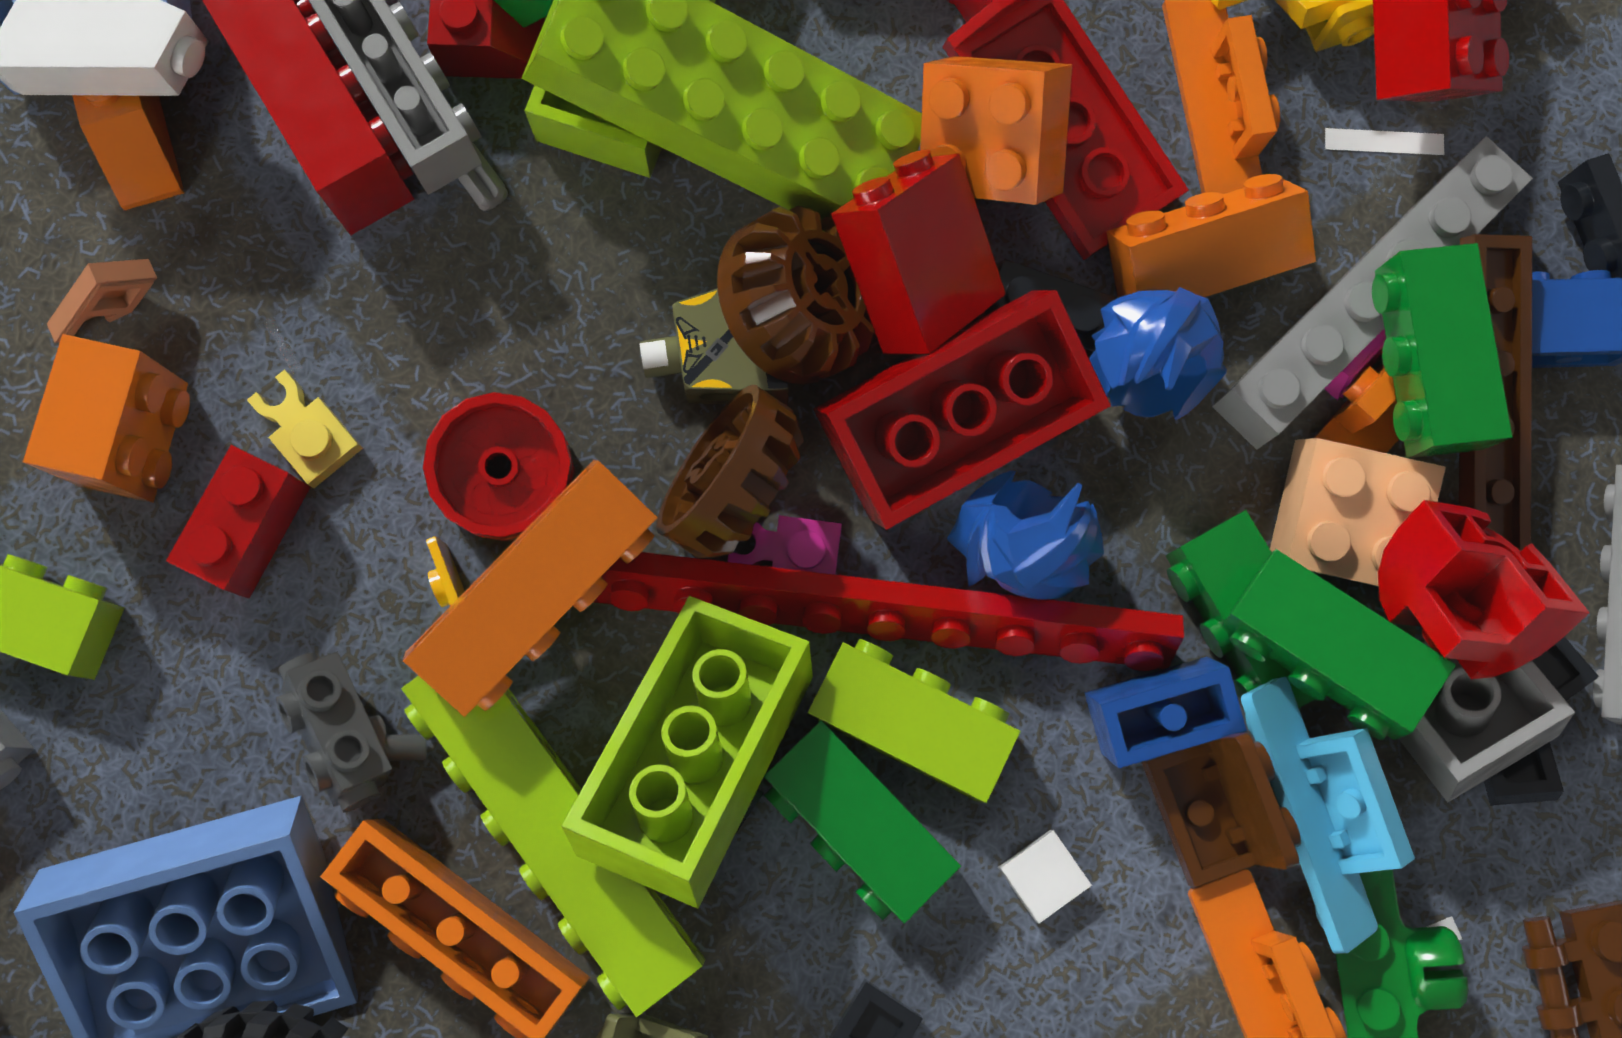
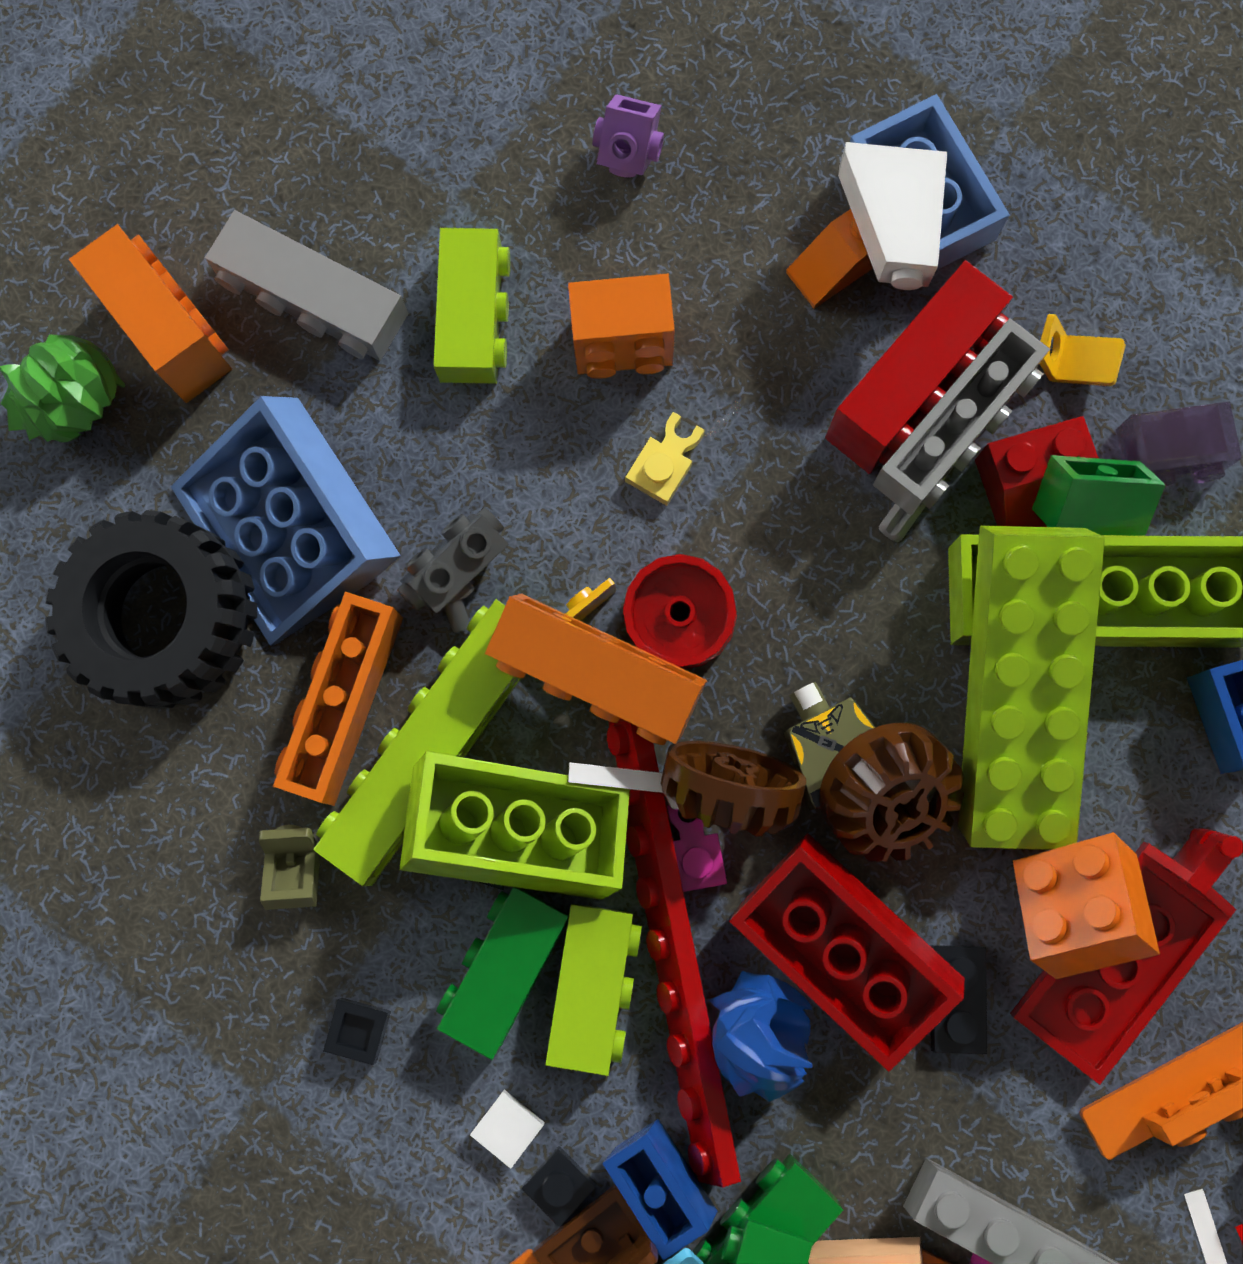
camera: 85 degrees right, 0 degrees up
(102, 290) = (716, 283): nougat tile -> none
(238, 522) = (579, 440): red brick -> none
(673, 609) = (614, 777): none -> white piece
(919, 252) = (958, 878): red brick -> none
(1127, 834) = (559, 1186): none -> black plate
(1158, 352) = (947, 1098): blue hair -> none
(1215, 240) = (1058, 1118): orange brick -> none

